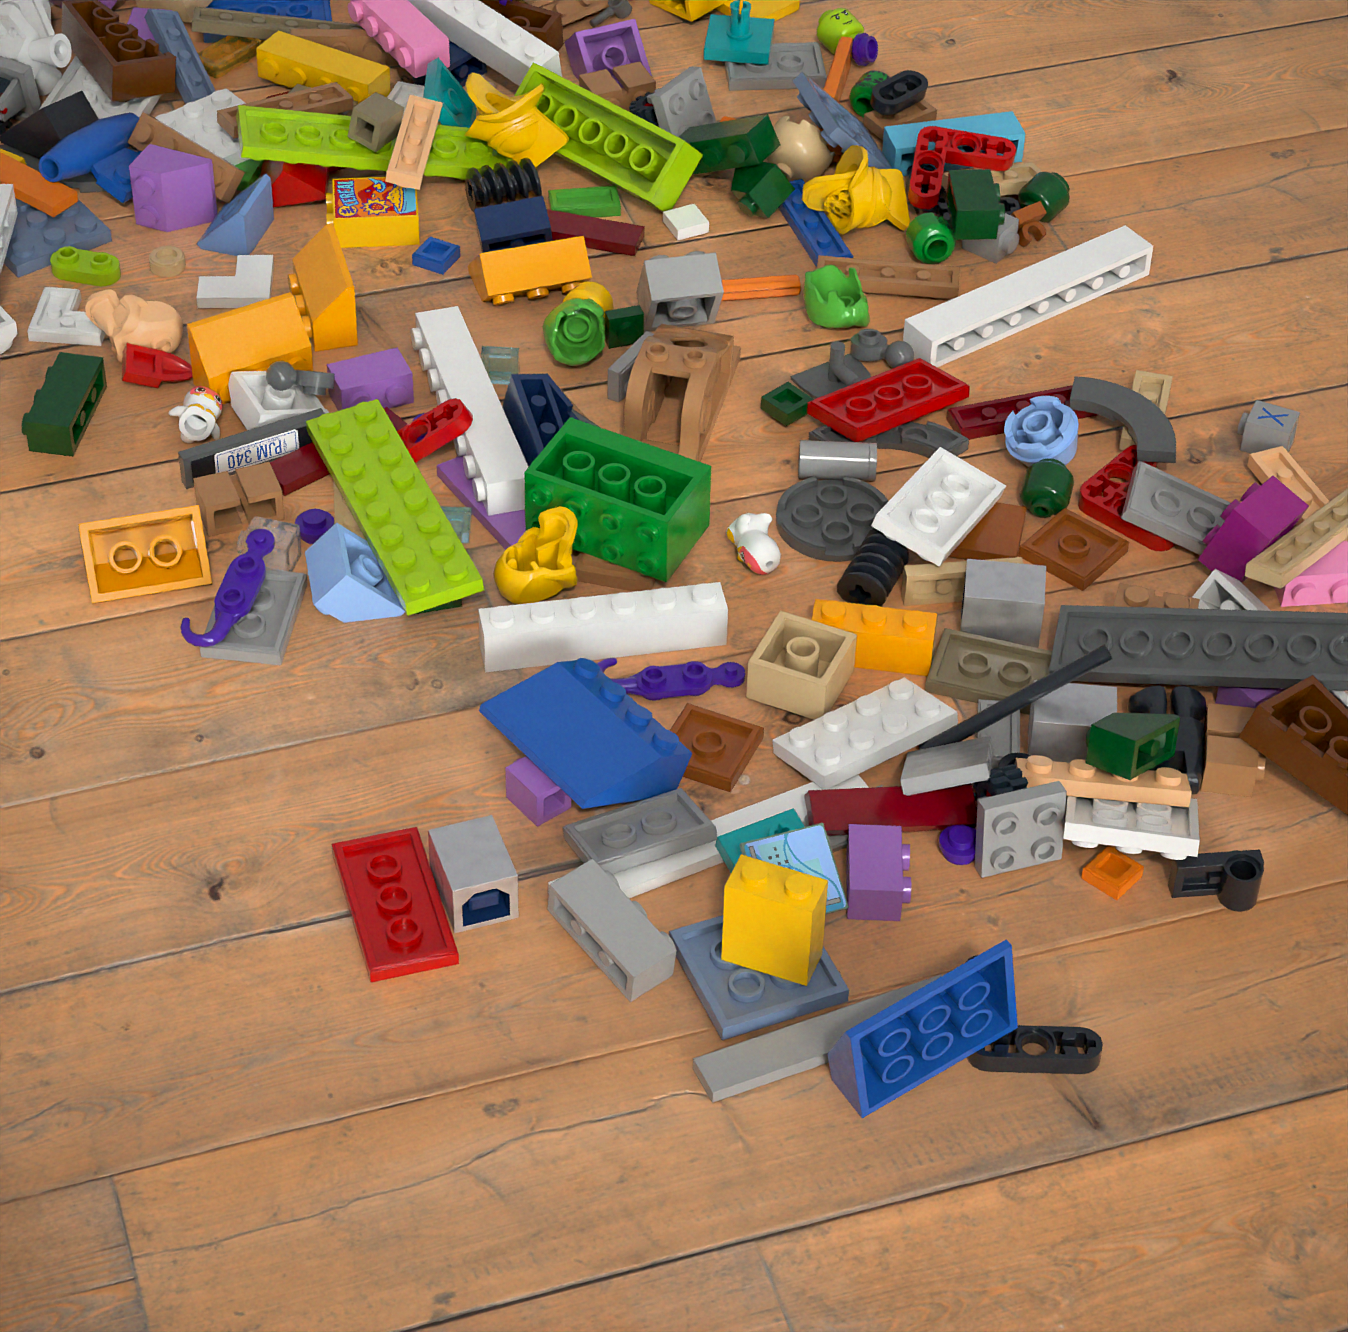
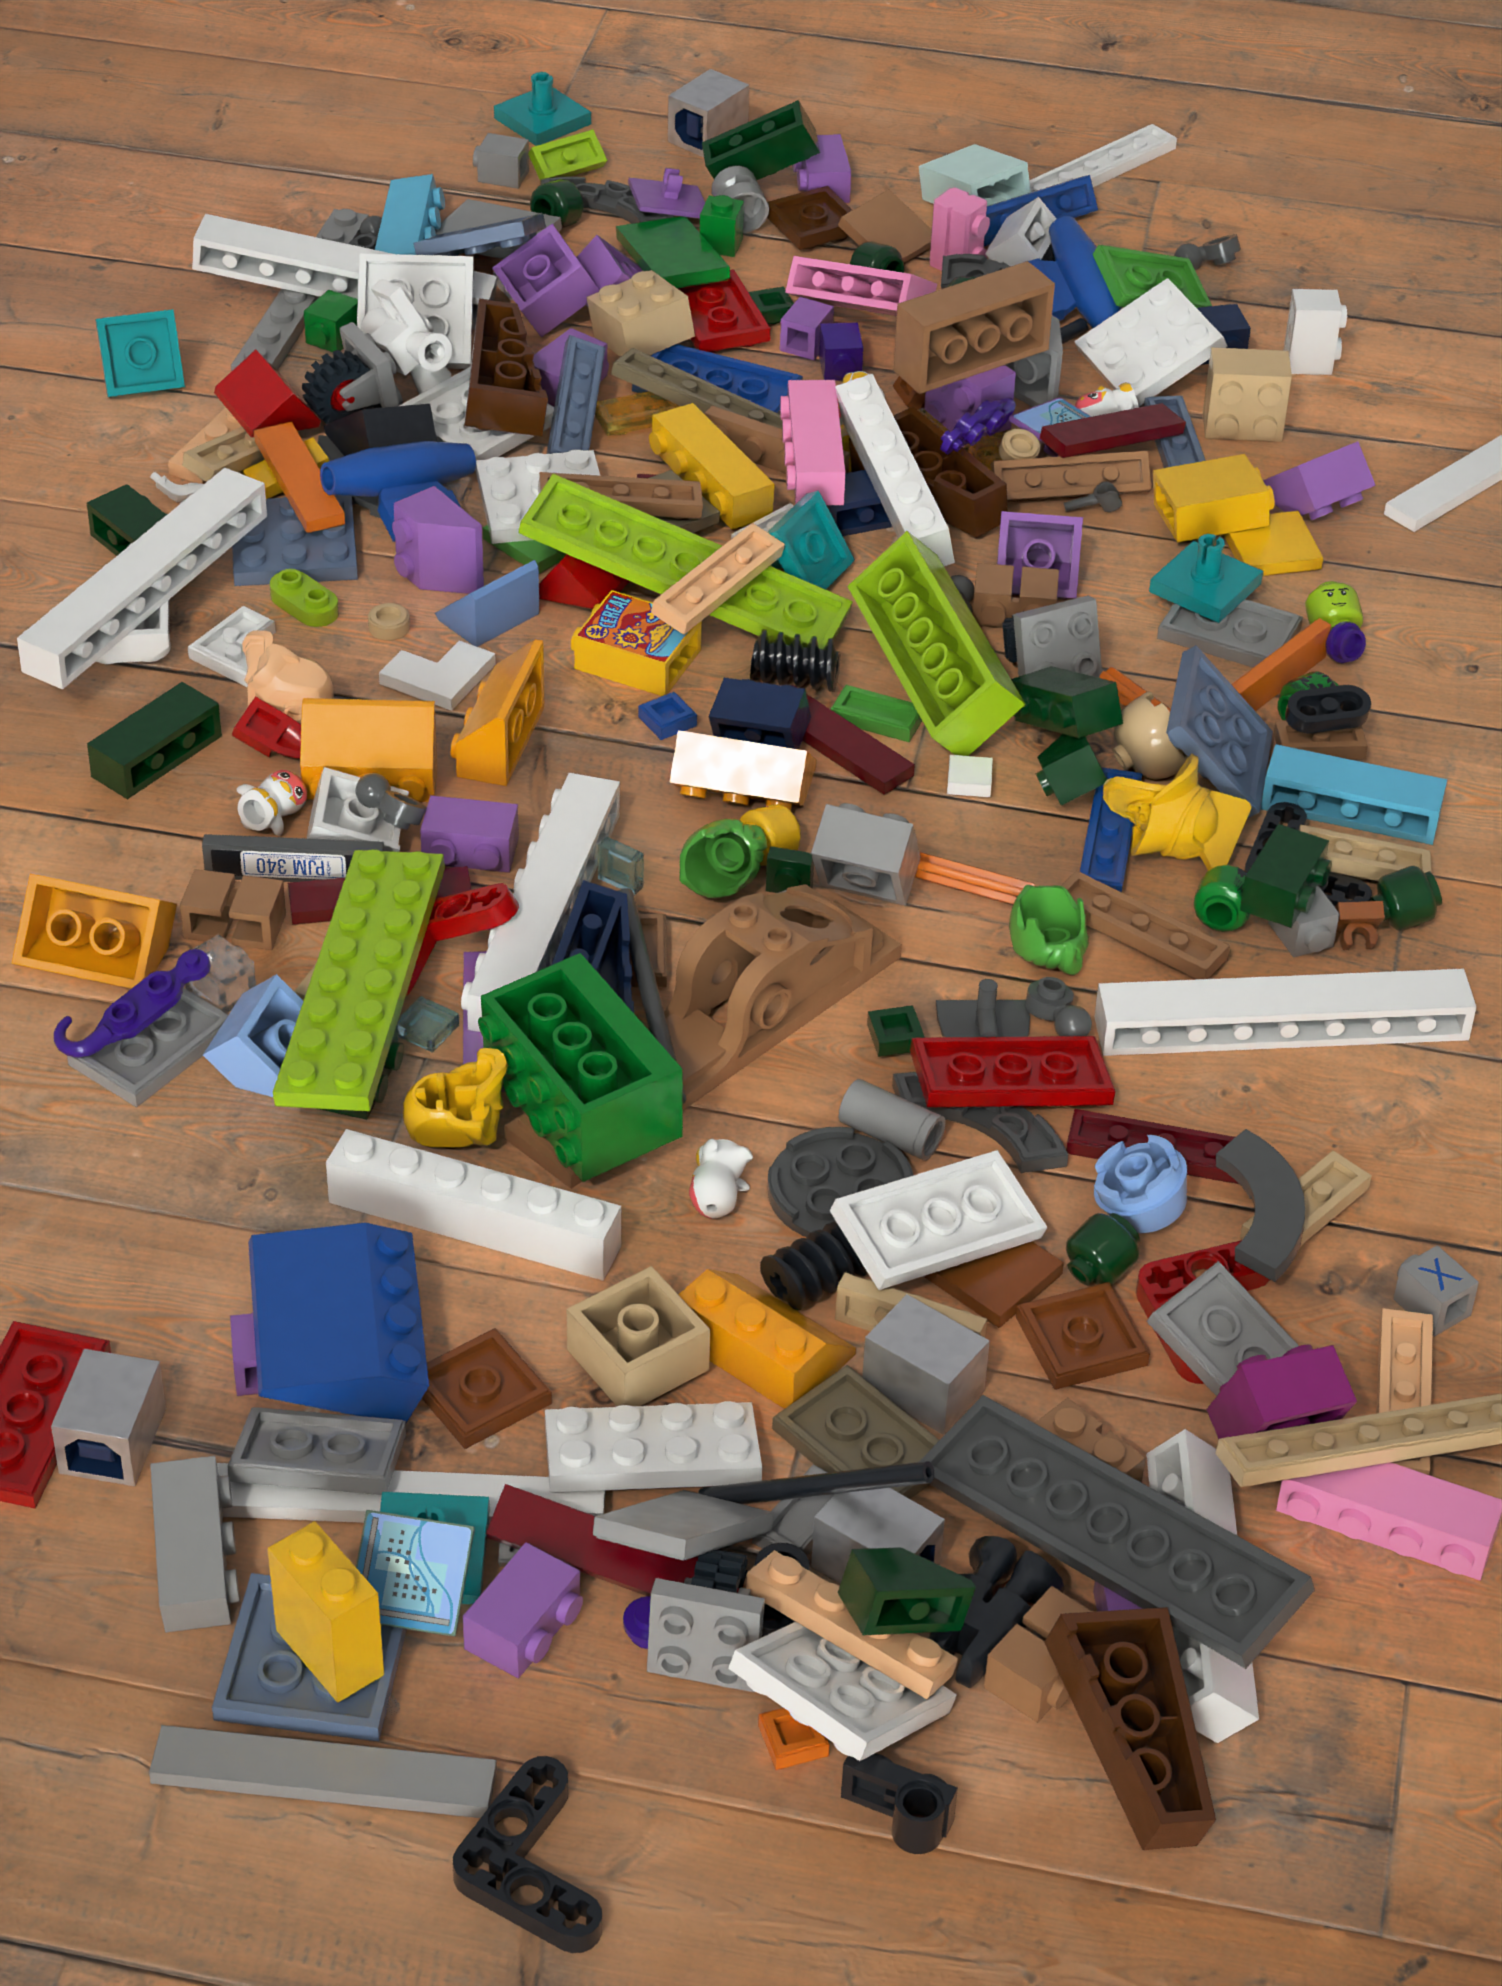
camera: 30 degrees right, 0 degrees up
(154, 132) = (476, 495): medium nougat plate -> none
(314, 524) = (289, 965): dark purple plate -> none
(375, 121) = (686, 540): dark tan brick -> none
(513, 123) = (842, 597): yellow helmet -> none
(678, 680) = (494, 1292): dark purple piece -> none
(926, 1031) = (388, 1813): blue slope -> none
(947, 151) = (1321, 800): red beam -> none

